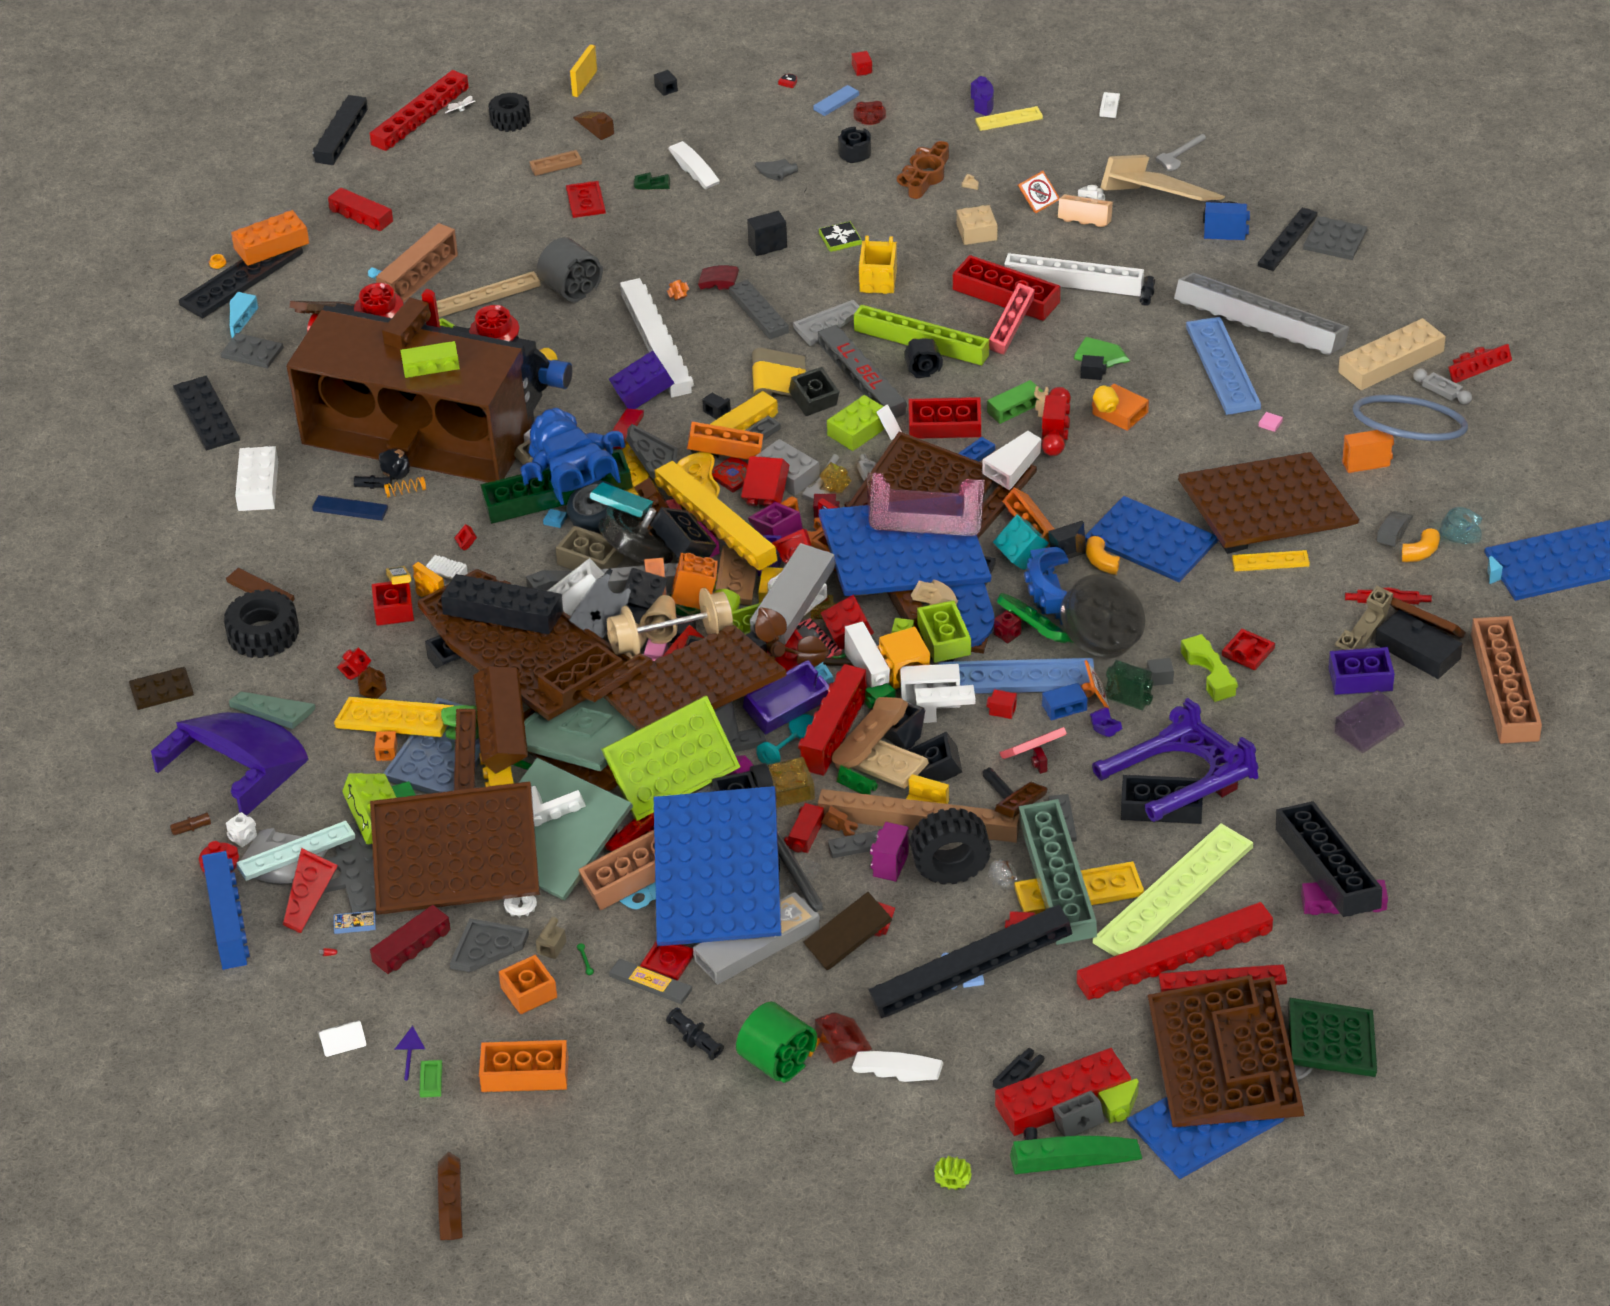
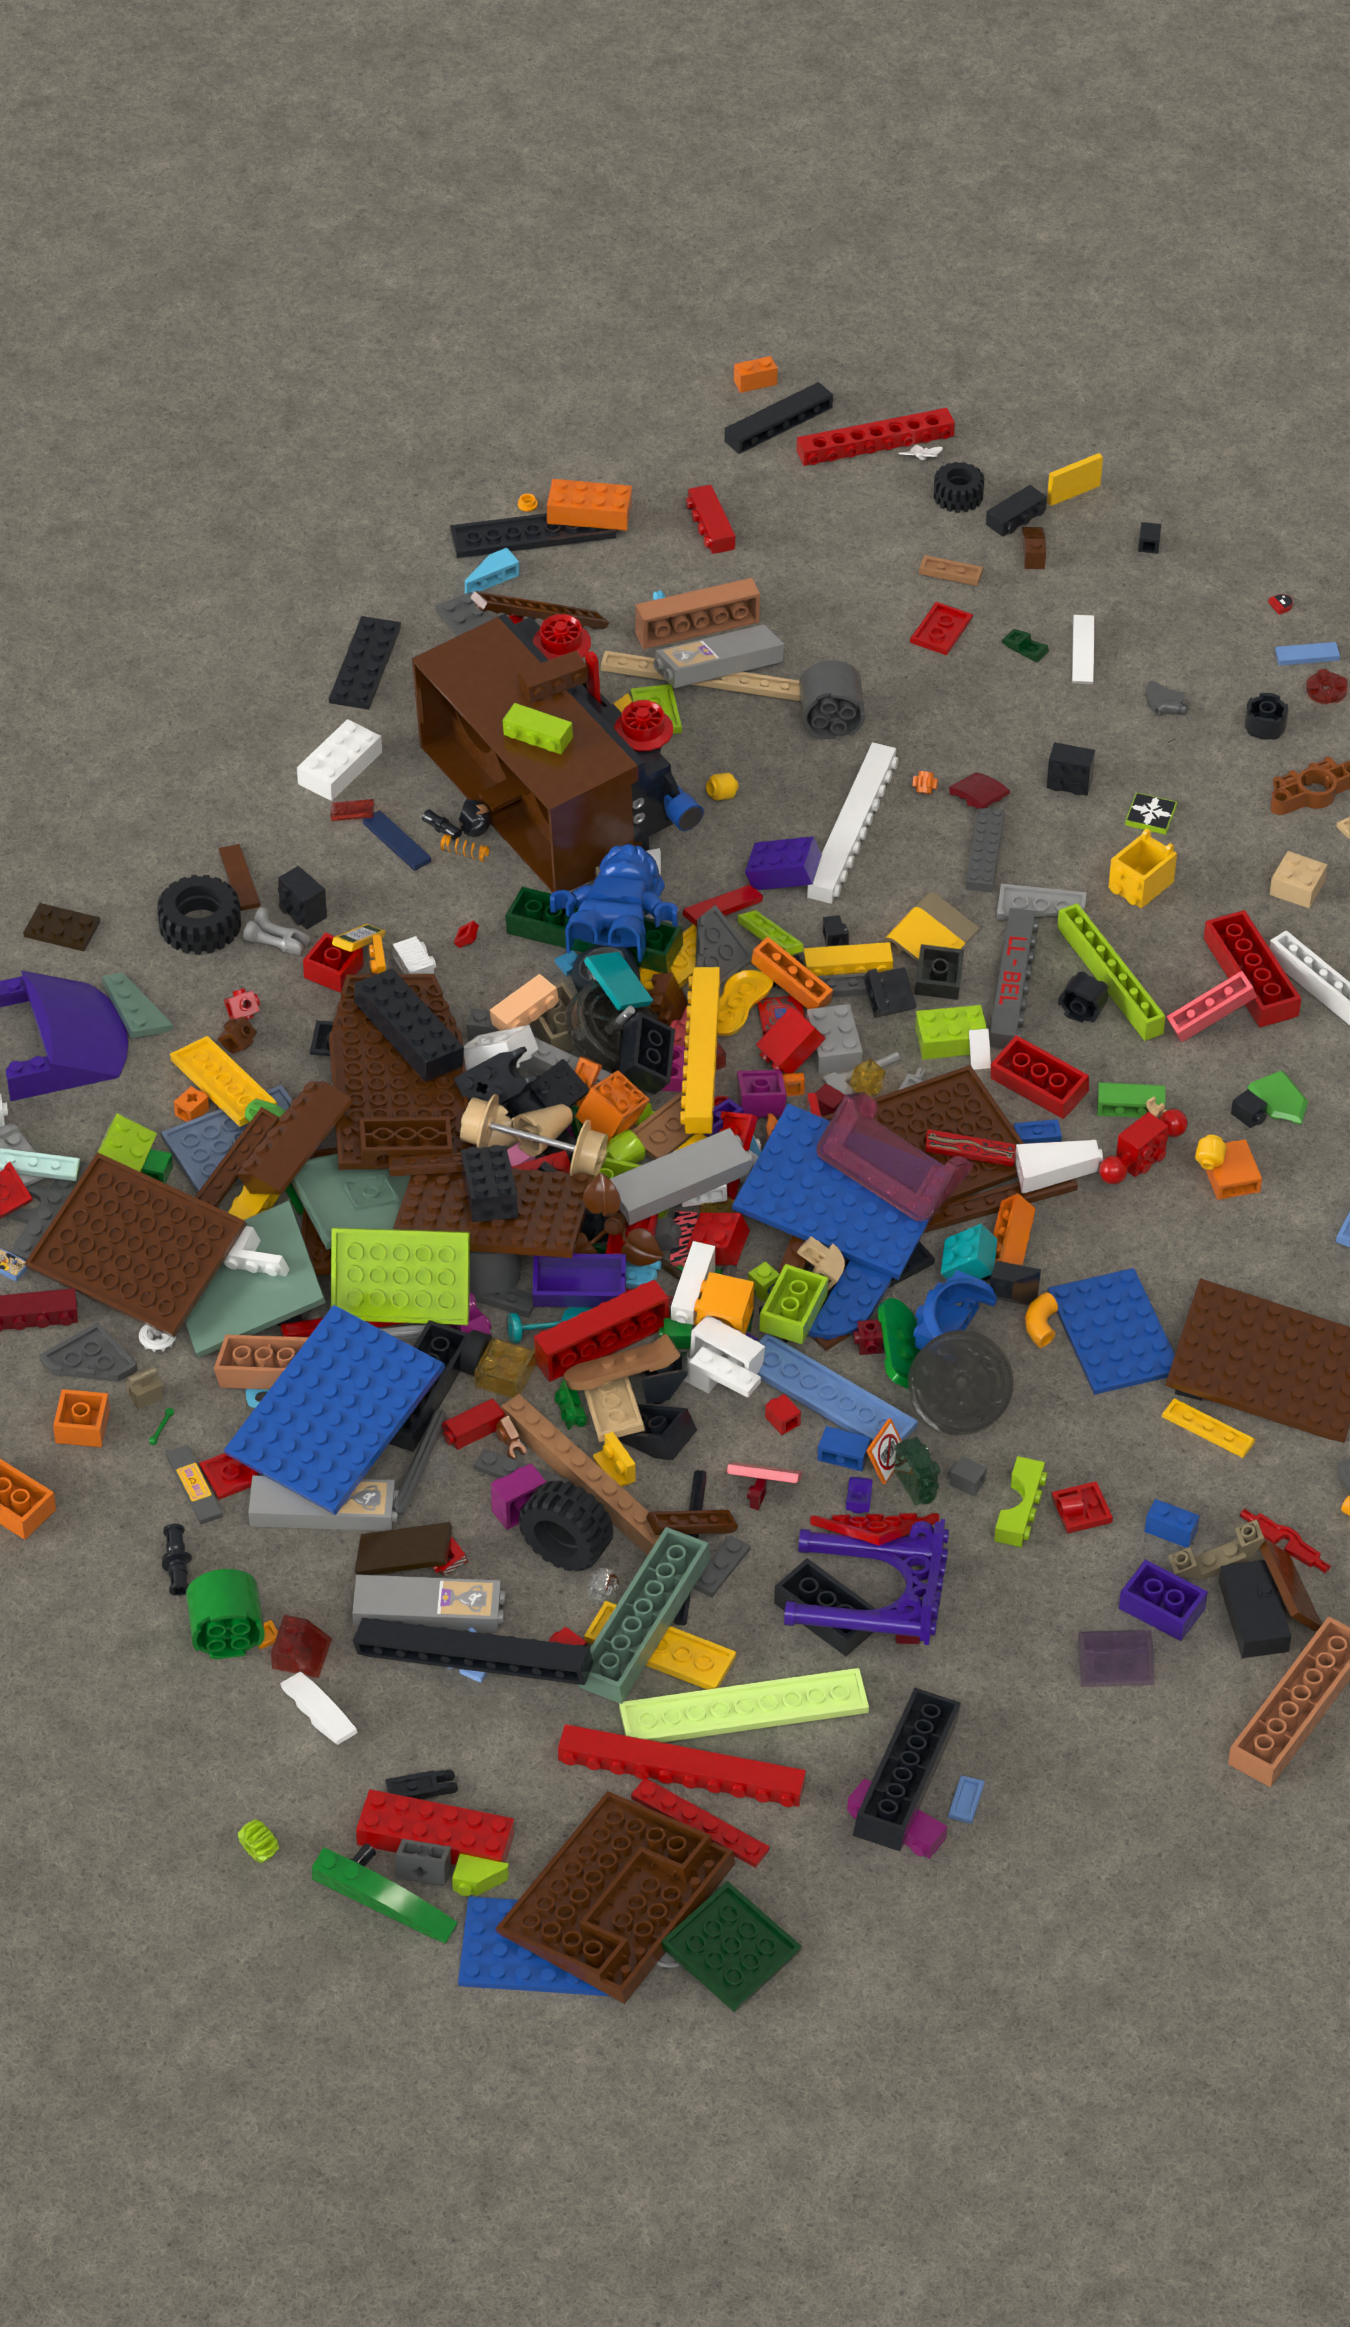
camera: 35 degrees right, 5 degrees up
(296, 111) = (755, 374): none -> orange brick
(298, 505) = (352, 810): none -> clear red tile
(319, 611) = (259, 931): none -> light grey piece
(327, 573) = (302, 898): none -> black brick
(464, 280) = (718, 656): none -> light grey brick
(562, 108) = (1016, 510): none -> black brick
(567, 551) = (525, 1004): none -> light nougat brick
(672, 427) = (763, 927): none -> lime plate
(678, 662) = (489, 1183): none -> black brick
(792, 421) = (889, 991): none -> black bracket
(897, 954) = (430, 1601): none -> light grey brick
(952, 478) = (970, 1147): none -> red tile
(1146, 731) = (872, 1527): none -> red tile
(1315, 625) = (1171, 1523): none -> blue brick
(1371, 860) = (966, 1799): none -> medium blue tile

